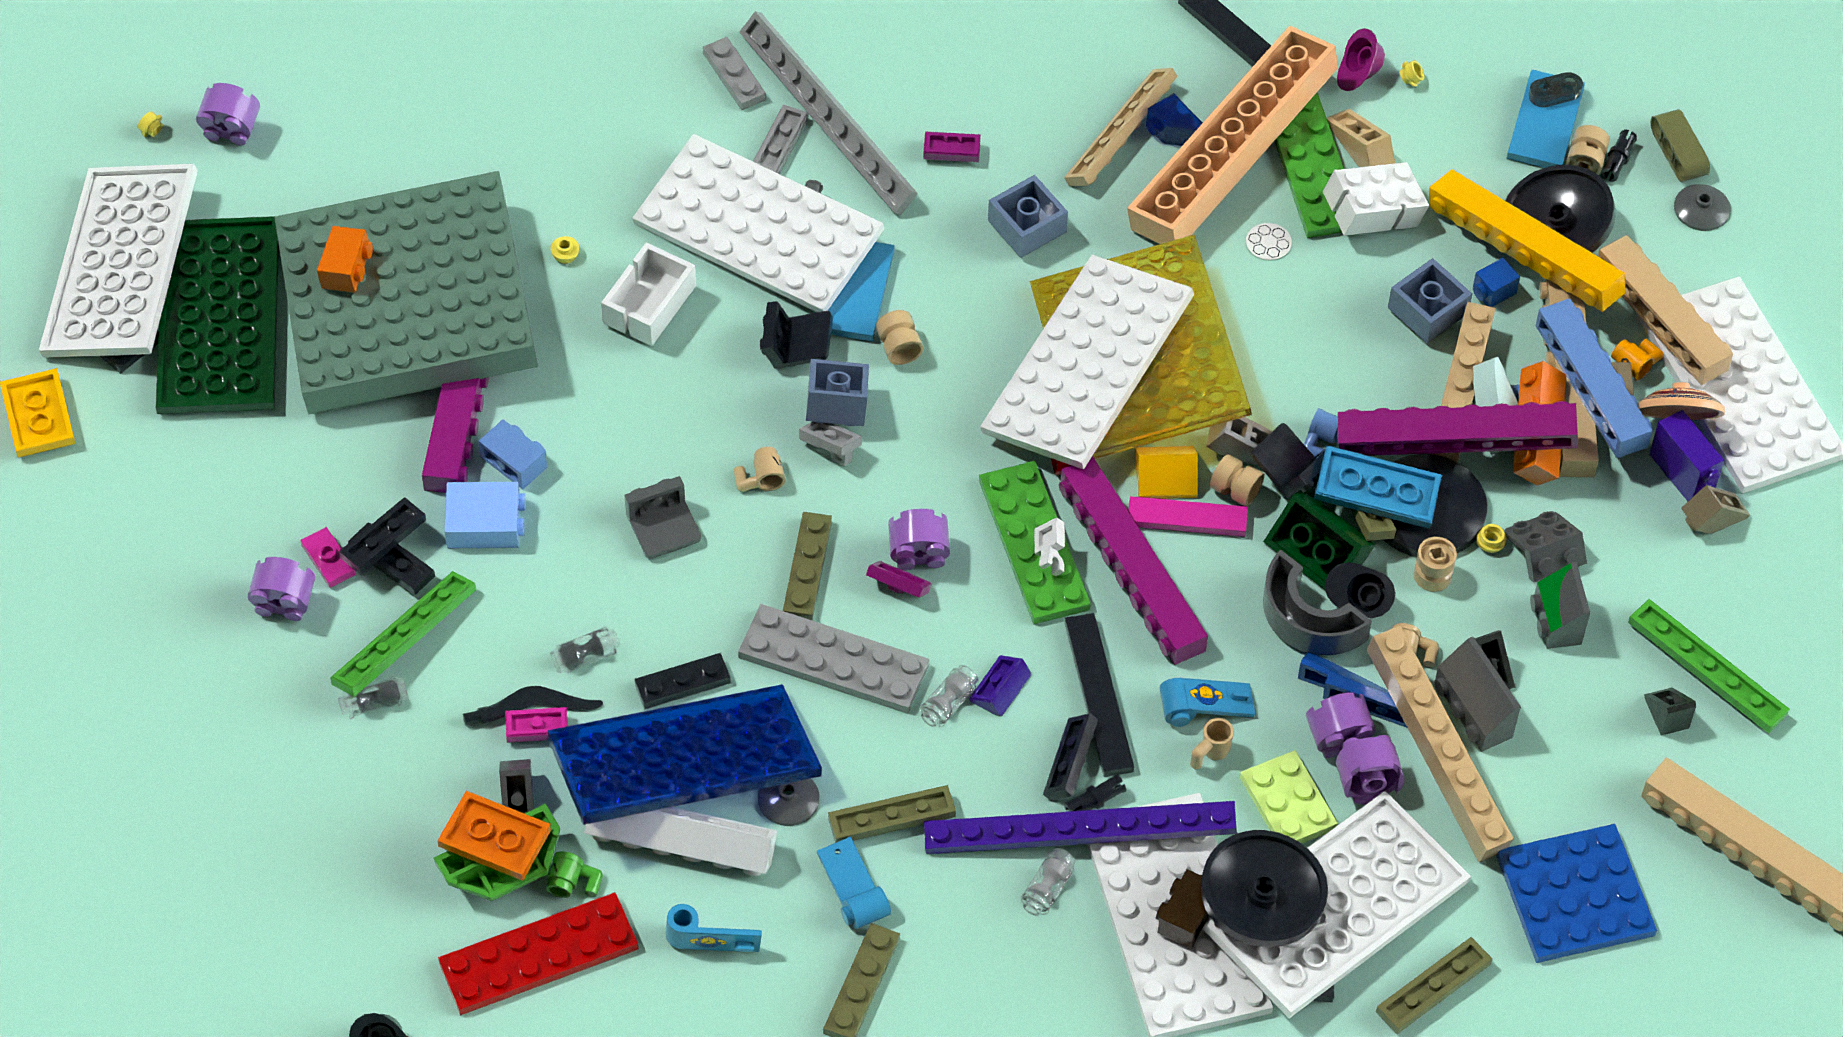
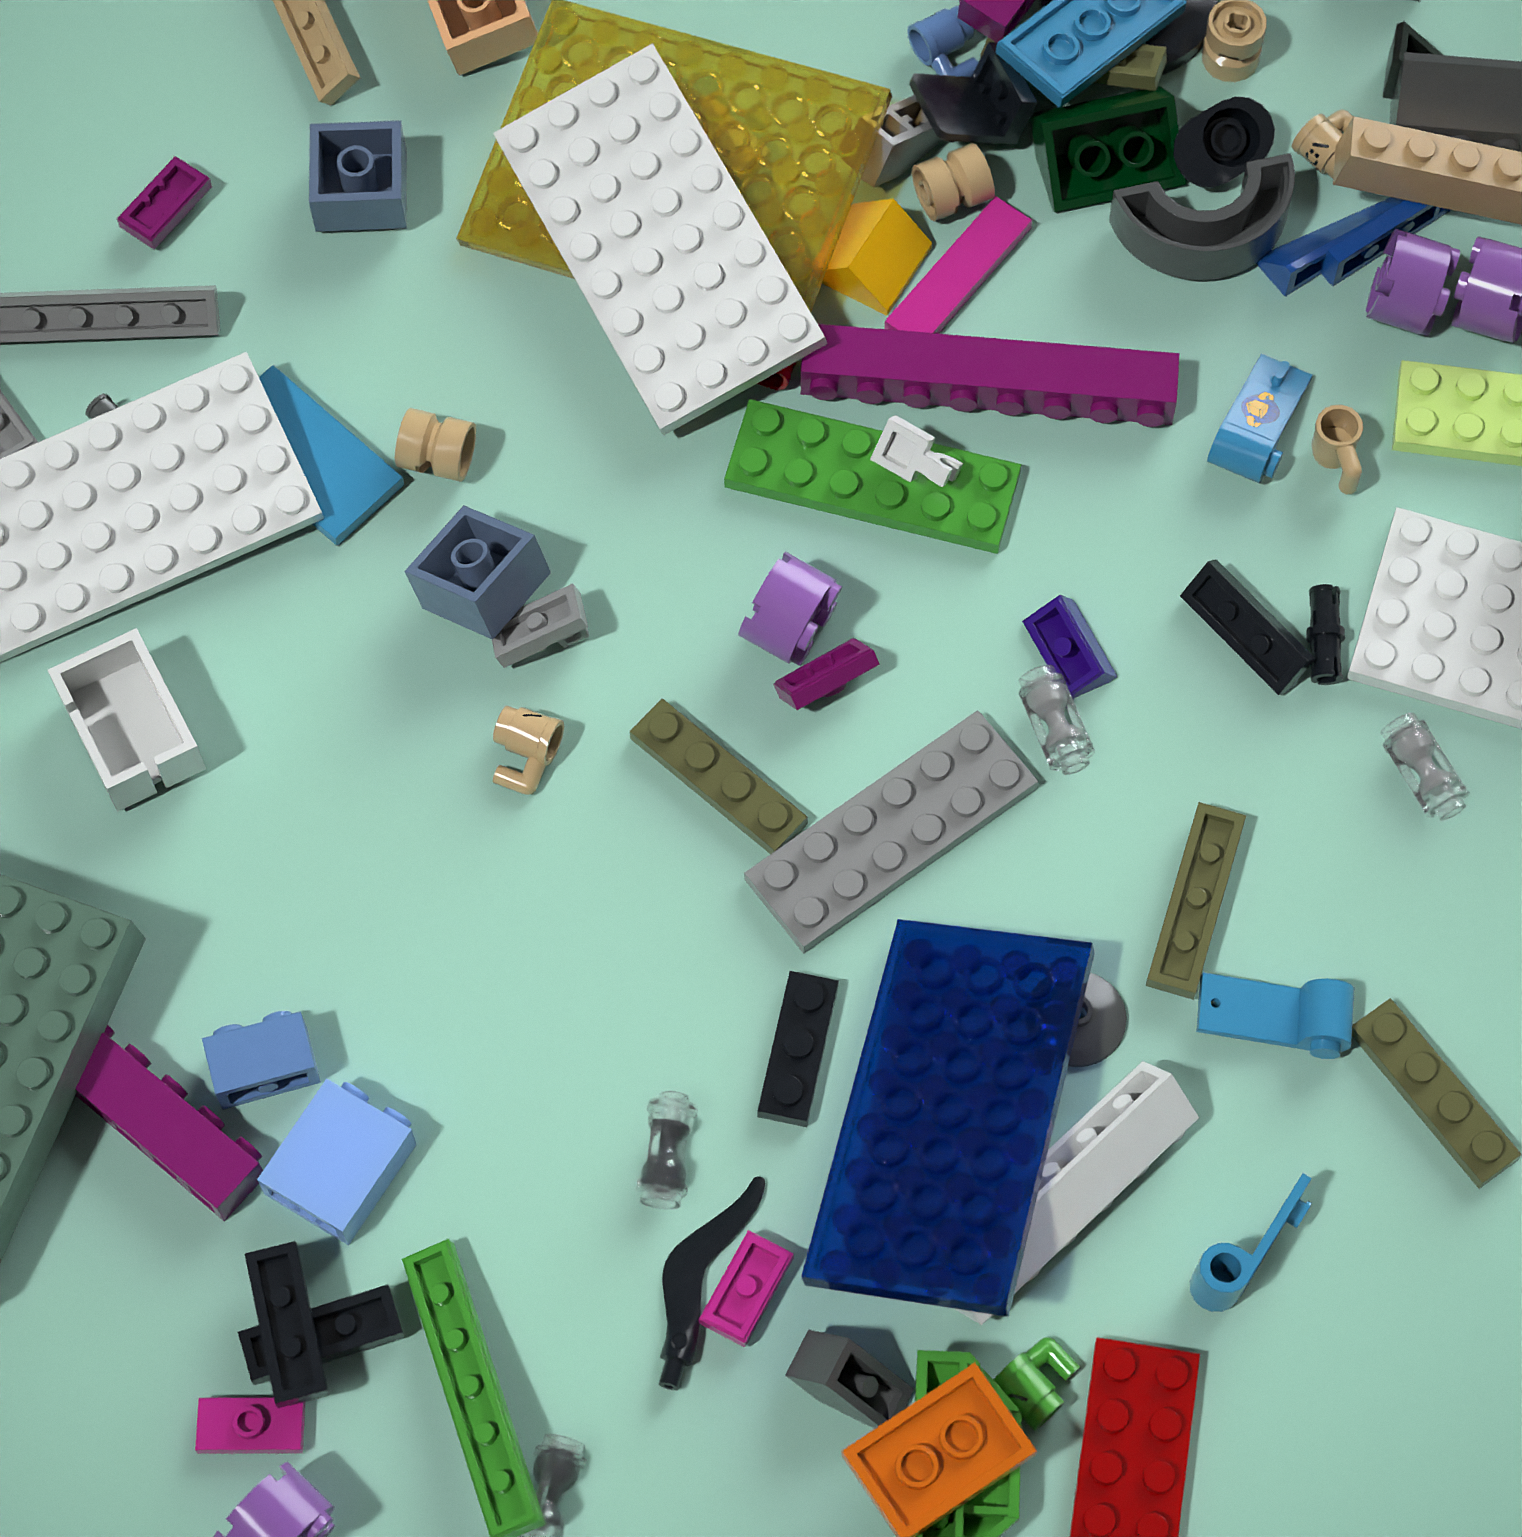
camera: 55 degrees left, 10 degrees up
(661, 518) = (517, 922): dark grey bracket -> none
(795, 339) = (342, 570): black bracket -> none
(1080, 827) = (1370, 681): dark purple plate -> none
(1099, 694) = (1162, 536): black tile -> none

